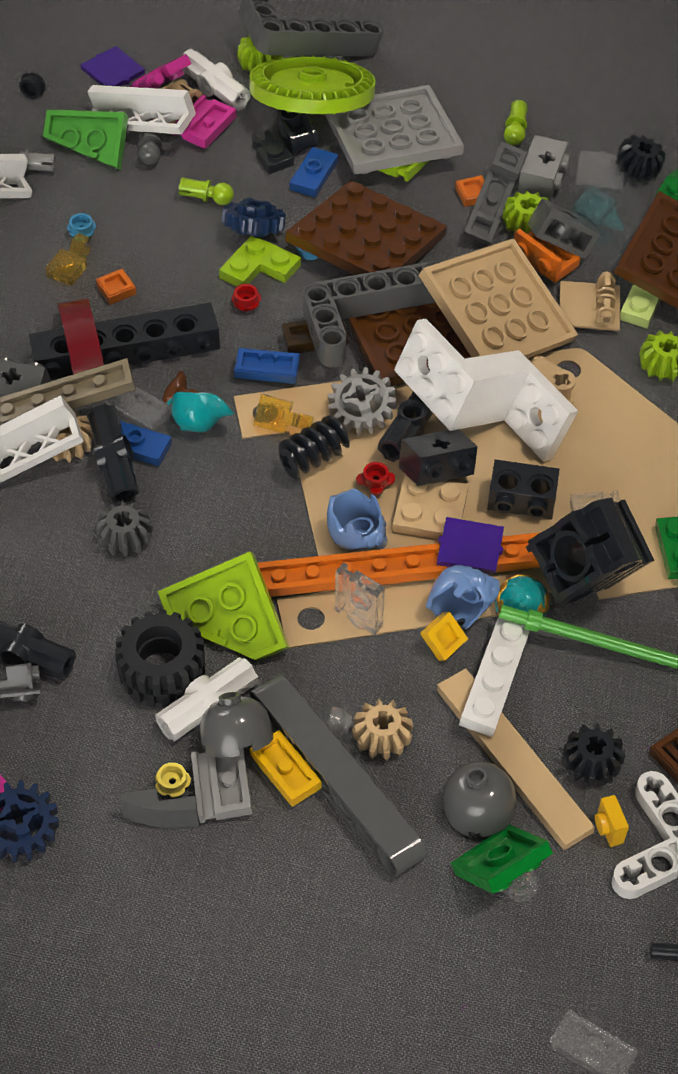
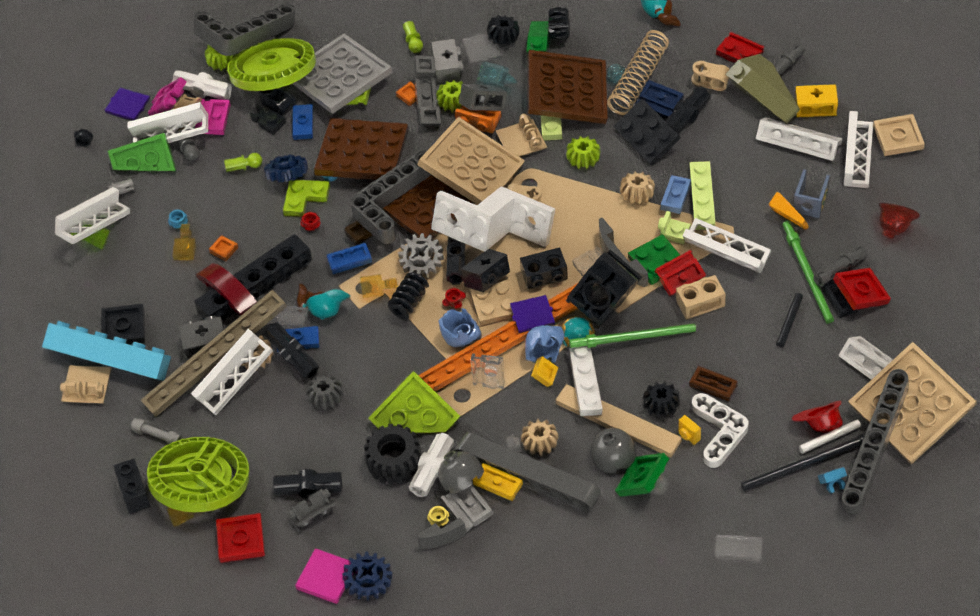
camera: 20 degrees left, 0 degrees up
(635, 490) = (606, 238): none -> dark grey slope

